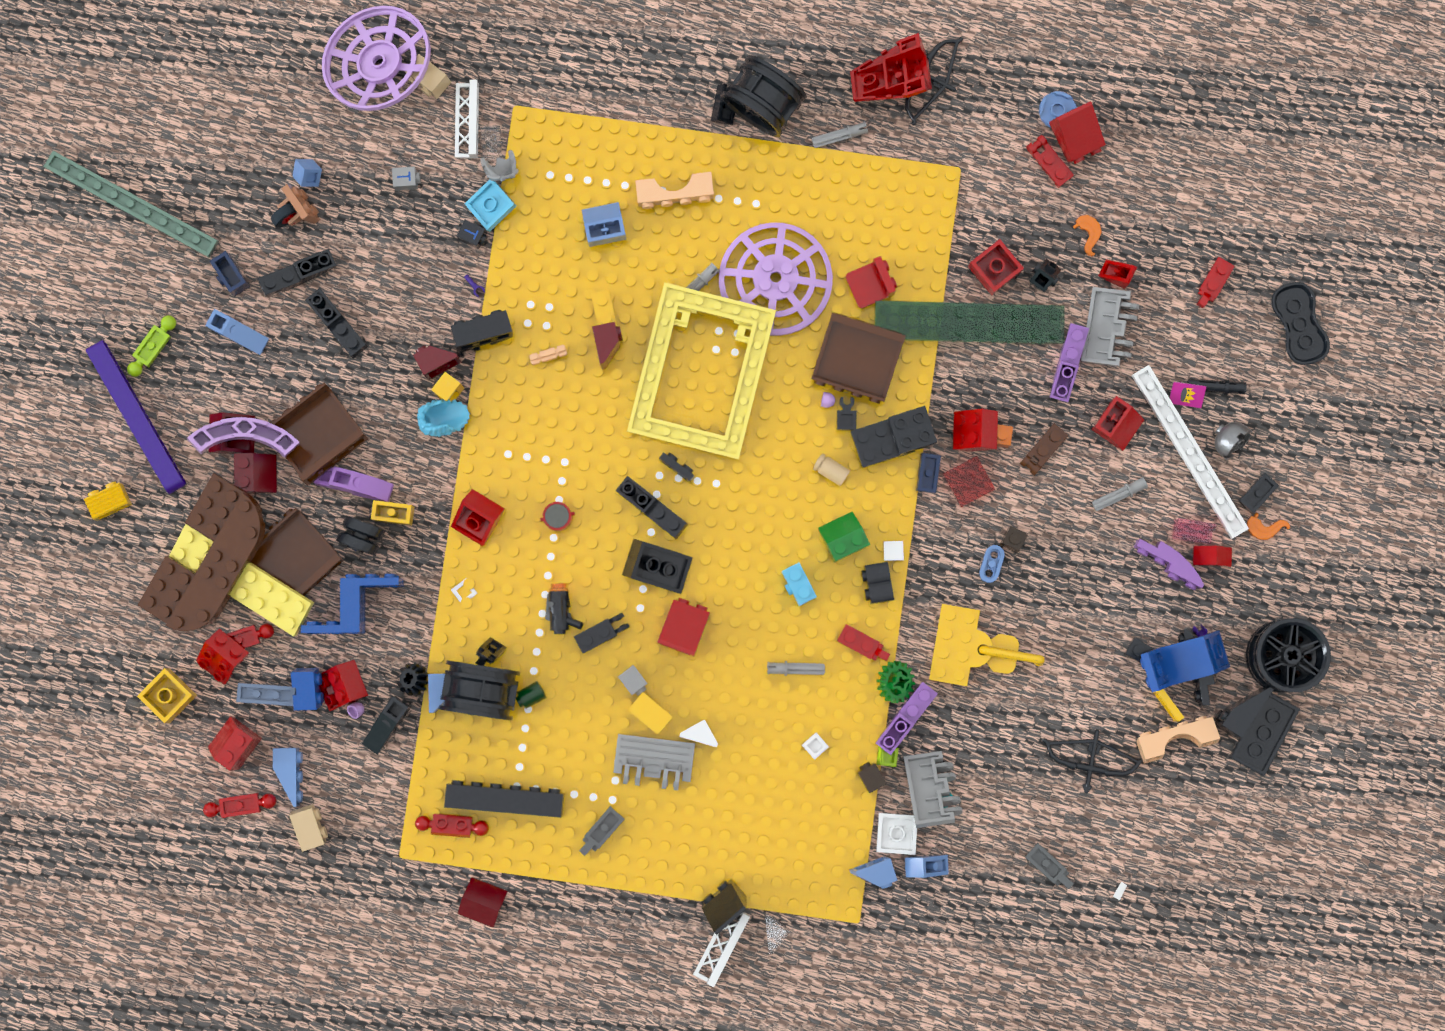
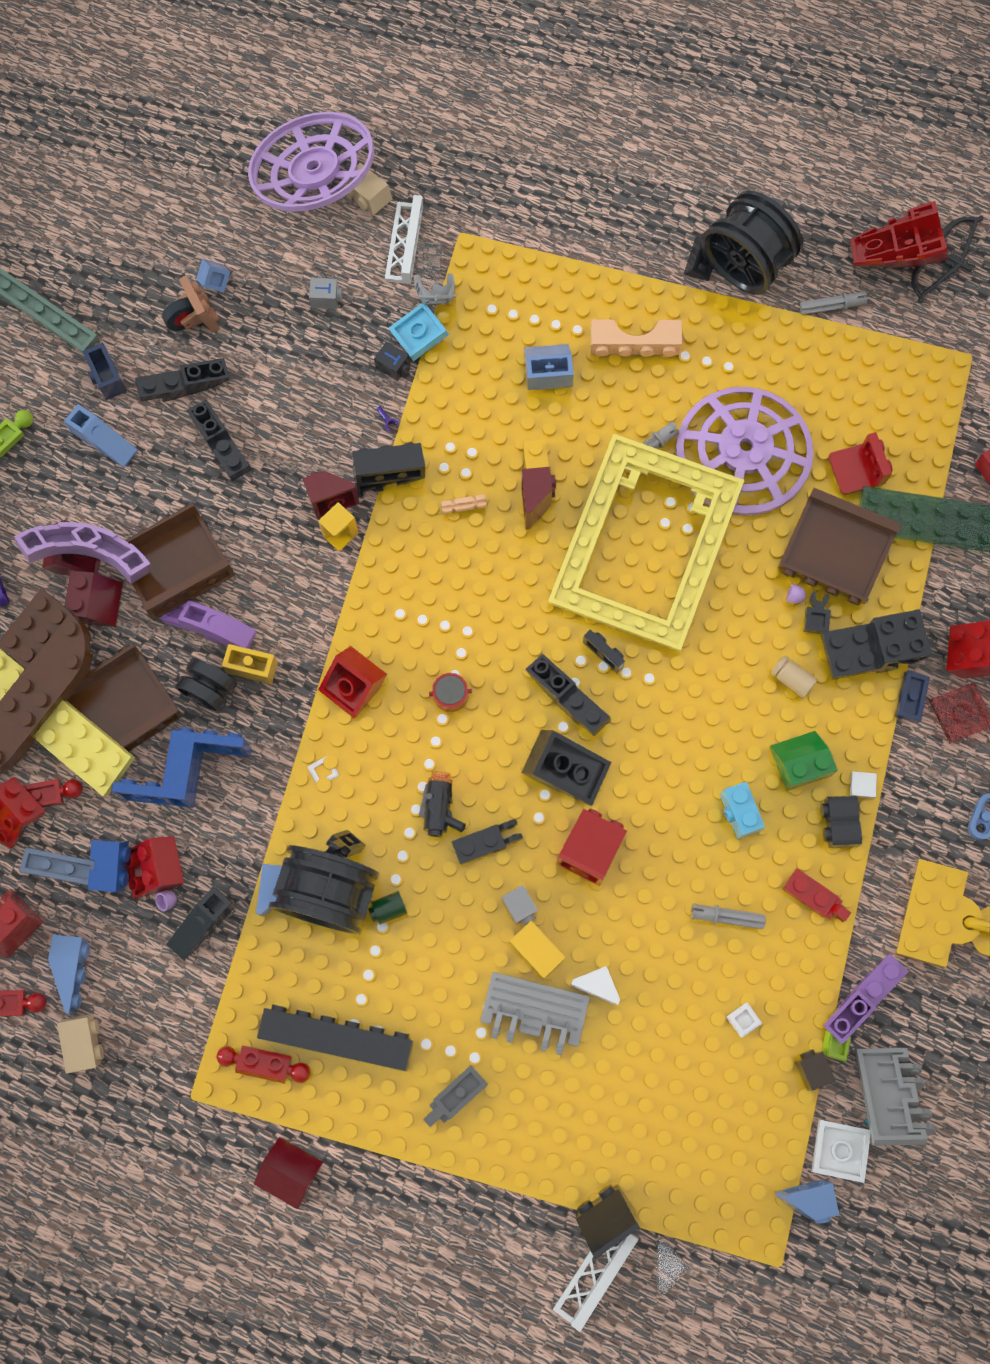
camera: 10 degrees right, 10 degrees down
(413, 679) = (243, 870): black gear -> none
(442, 417) = (327, 559): medium azure piece -> none
(895, 682) = (855, 949): green gear -> none
(926, 866) = (877, 1200): medium blue slope -> none

